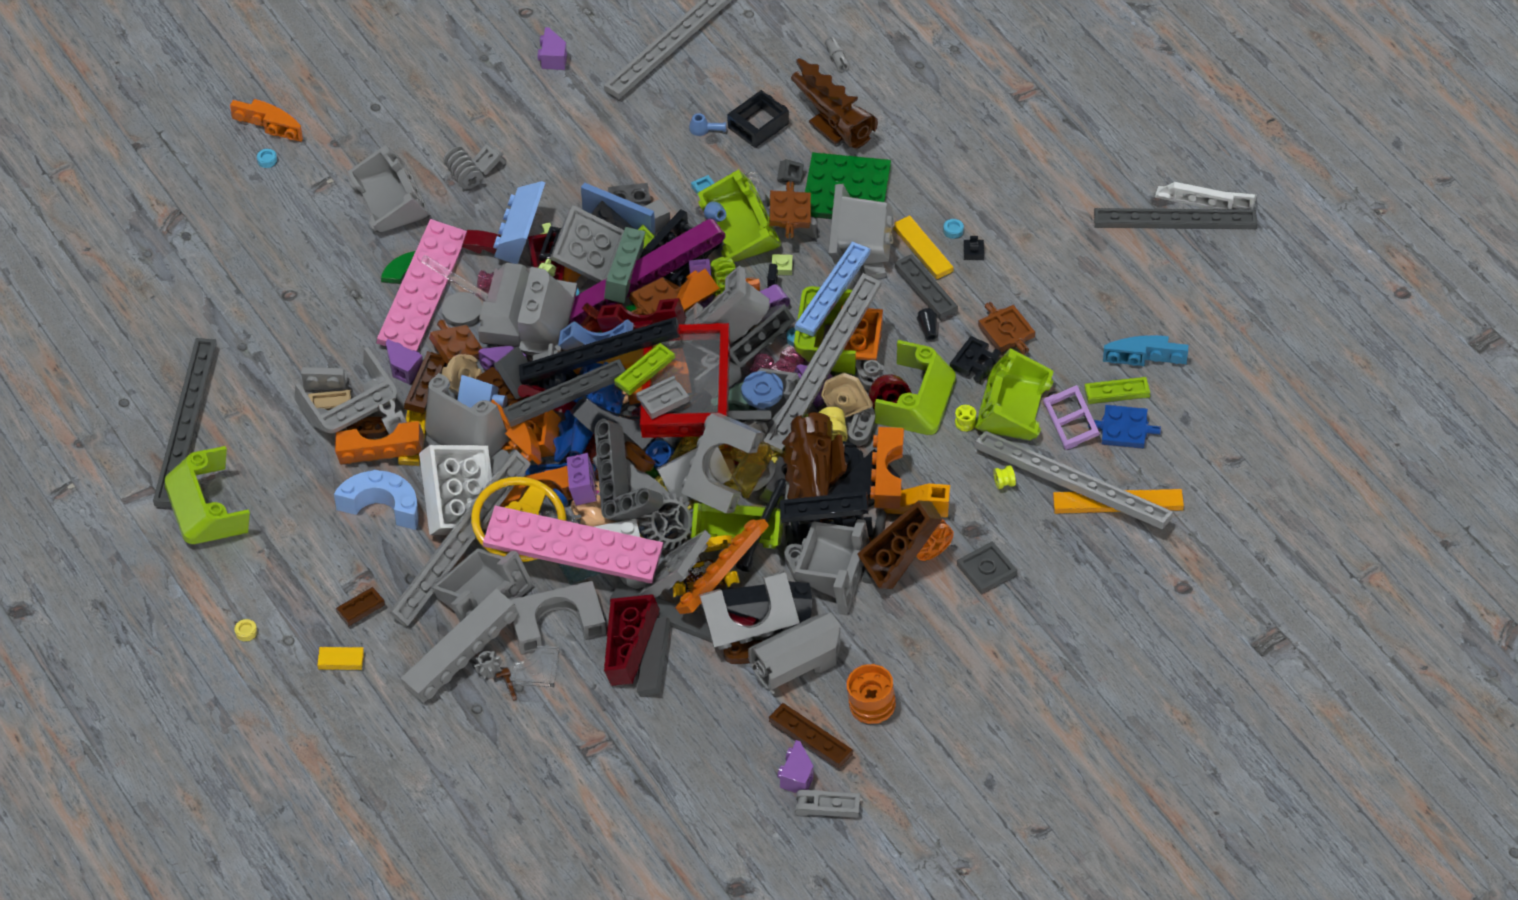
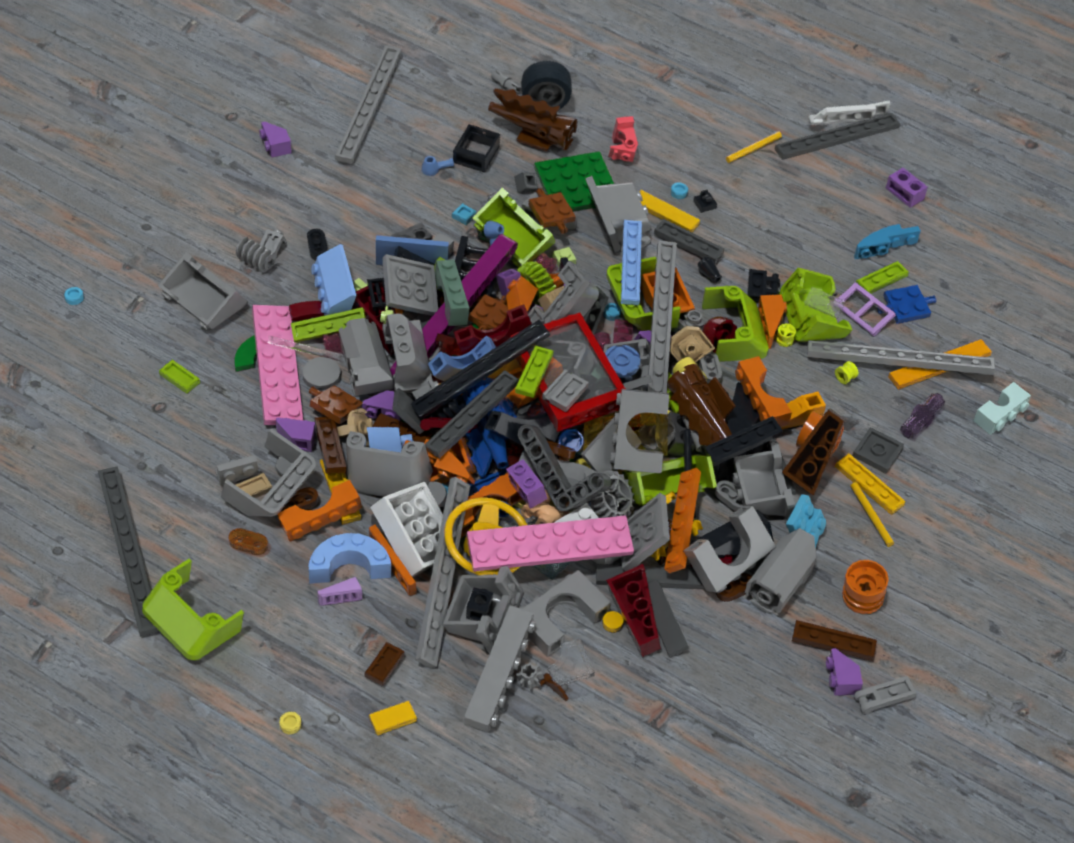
camera: 30 degrees left, 0 degrees up
(275, 120) = (63, 260): orange slope -> none
(302, 453) = (249, 541): none -> clear orange plate
(323, 270) = (179, 376): none -> lime tile
(357, 526) = (341, 592): none -> lavender slope
(393, 418) = (323, 485): light grey plate -> none
(422, 514) = (397, 566): none -> orange tile
(479, 581) = (476, 611): none -> black brick
(488, 260) = (327, 324): none -> lime plate
(532, 172) = (316, 242): none -> black plate
(599, 642) = (612, 621): none -> yellow tile
(755, 265) = (548, 263): none -> clear pink wheel
(852, 612) = (807, 518): none -> medium azure plate
(868, 70) = (547, 82): none -> black wheel
(925, 151) = (626, 150): none -> coral tile
(936, 629) = (872, 514): none -> yellow bar
(955, 598) = (870, 484): none -> yellow tile
(964, 391) = (771, 313): none -> orange slope
(1006, 328) = (771, 255): dark orange plate -> none
(1028, 396) = (824, 302): none -> clear plate
(1057, 547) = (922, 415): none -> clear purple piece
(1069, 203) = (753, 147): none -> yellow bar
(1135, 574) = (1012, 401): none -> light aqua arch
(1212, 298) = (906, 187): none -> medium lavender brick

